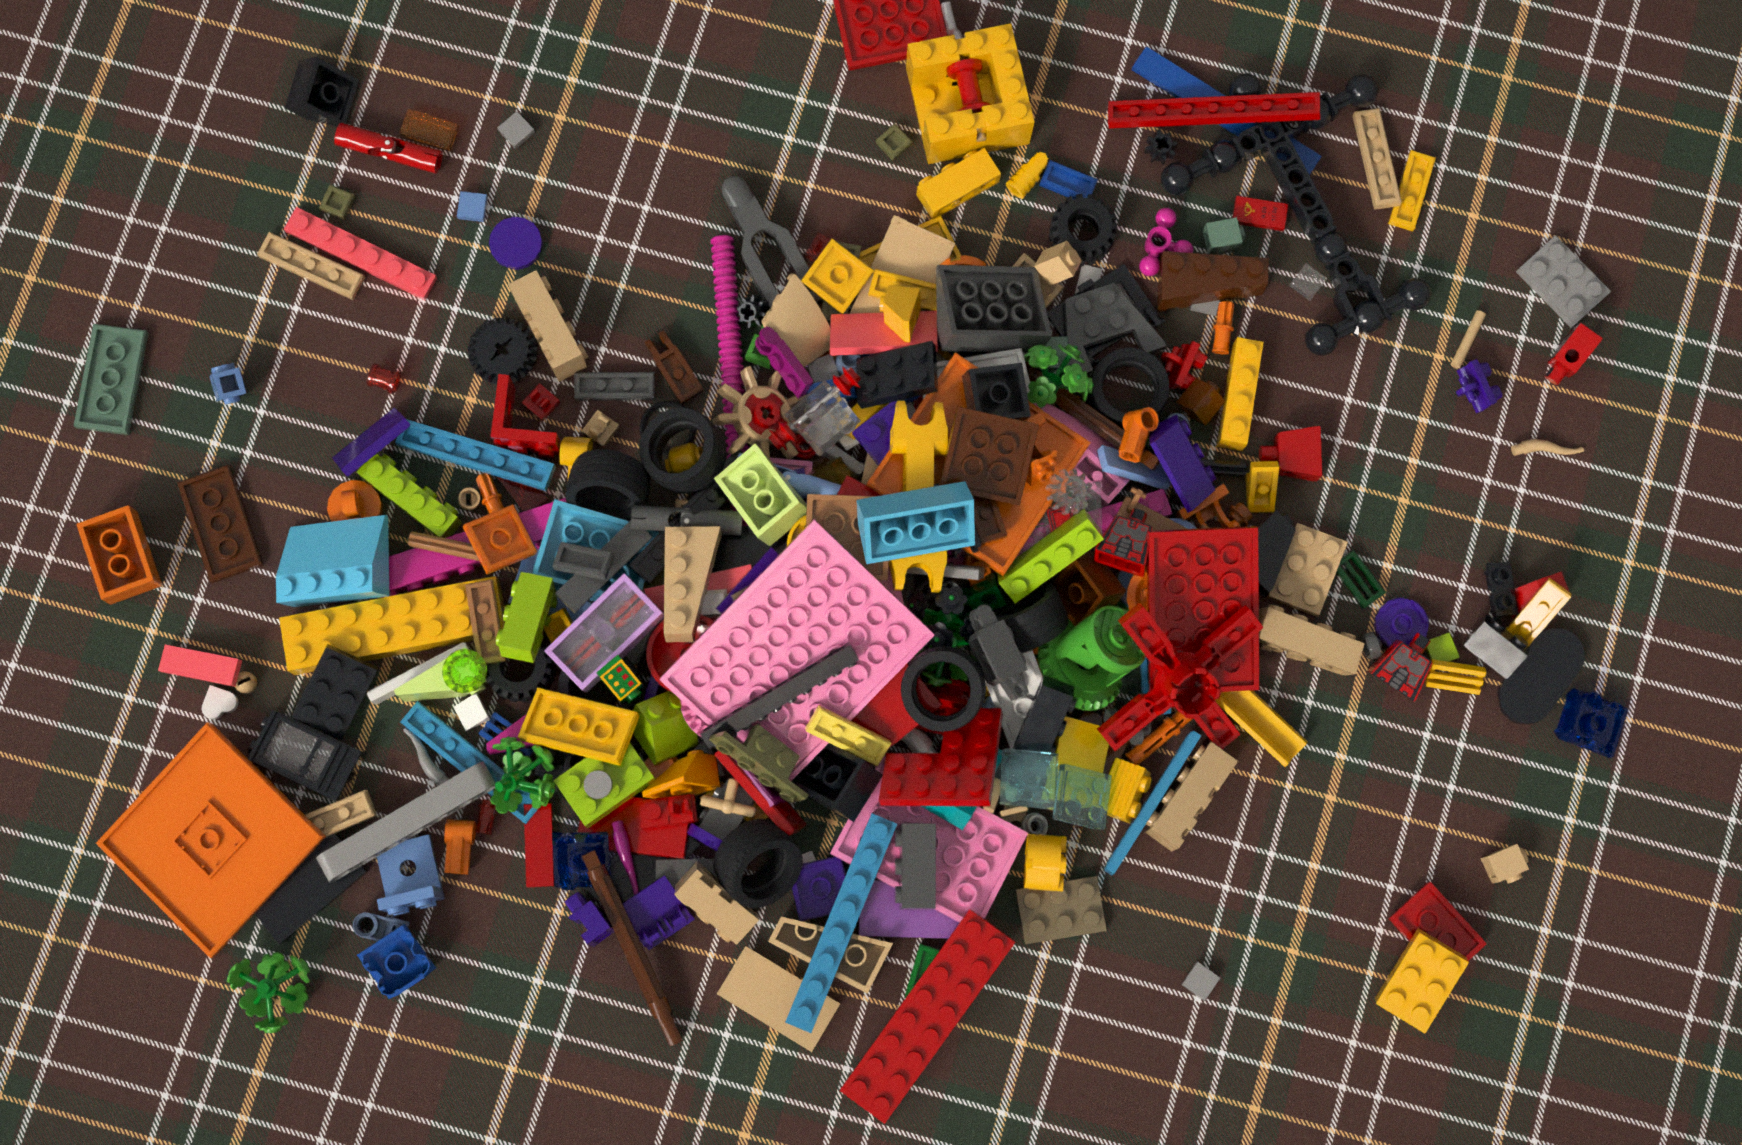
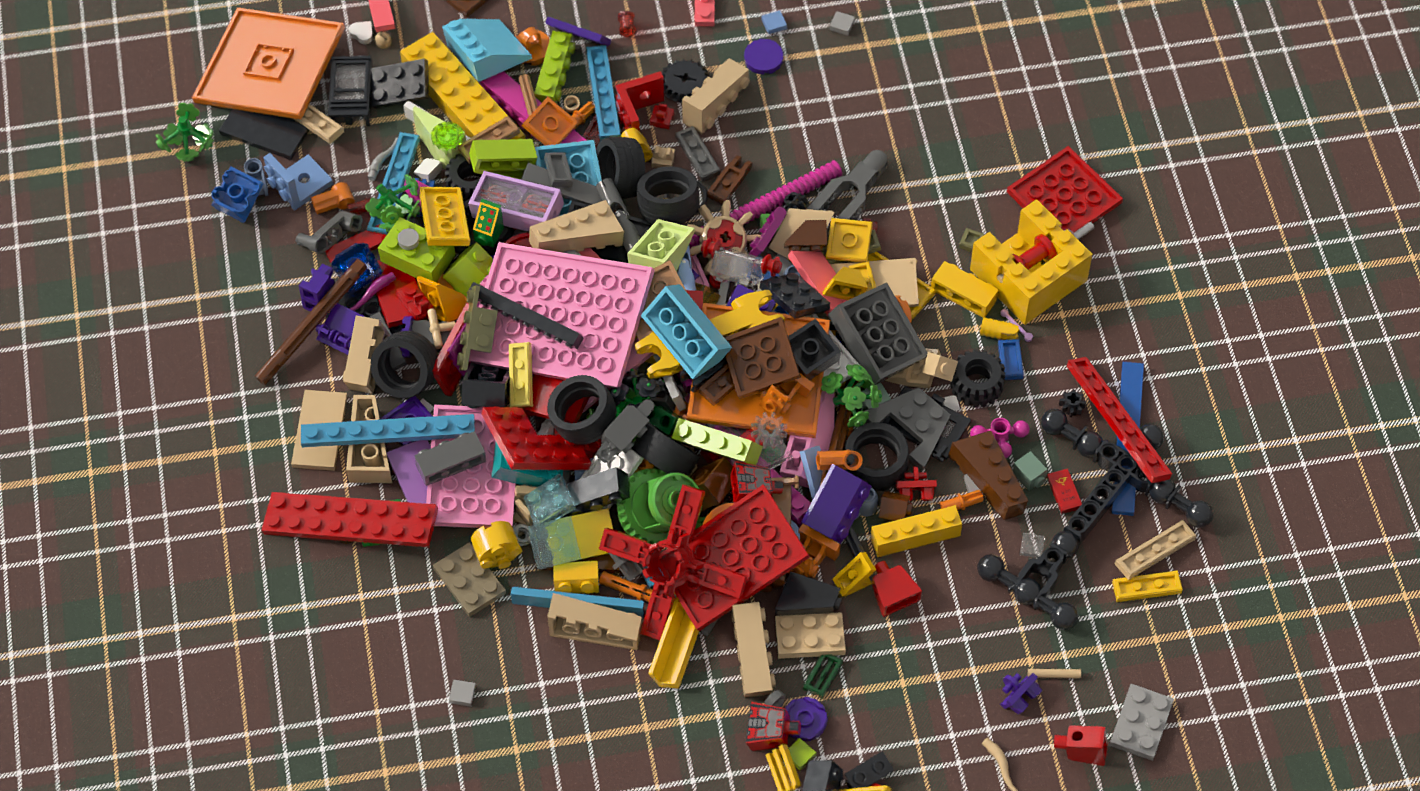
camera: 70 degrees right, 20 degrees down
(406, 822) = (331, 158): light grey beam -> none
(503, 852) = (341, 225): none -> dark grey beam
(814, 318) = (810, 235): none -> reddish brown slope
(1048, 149) = (1027, 336): none -> lavender hinge
(1240, 514) = (825, 571): dark orange plate -> none

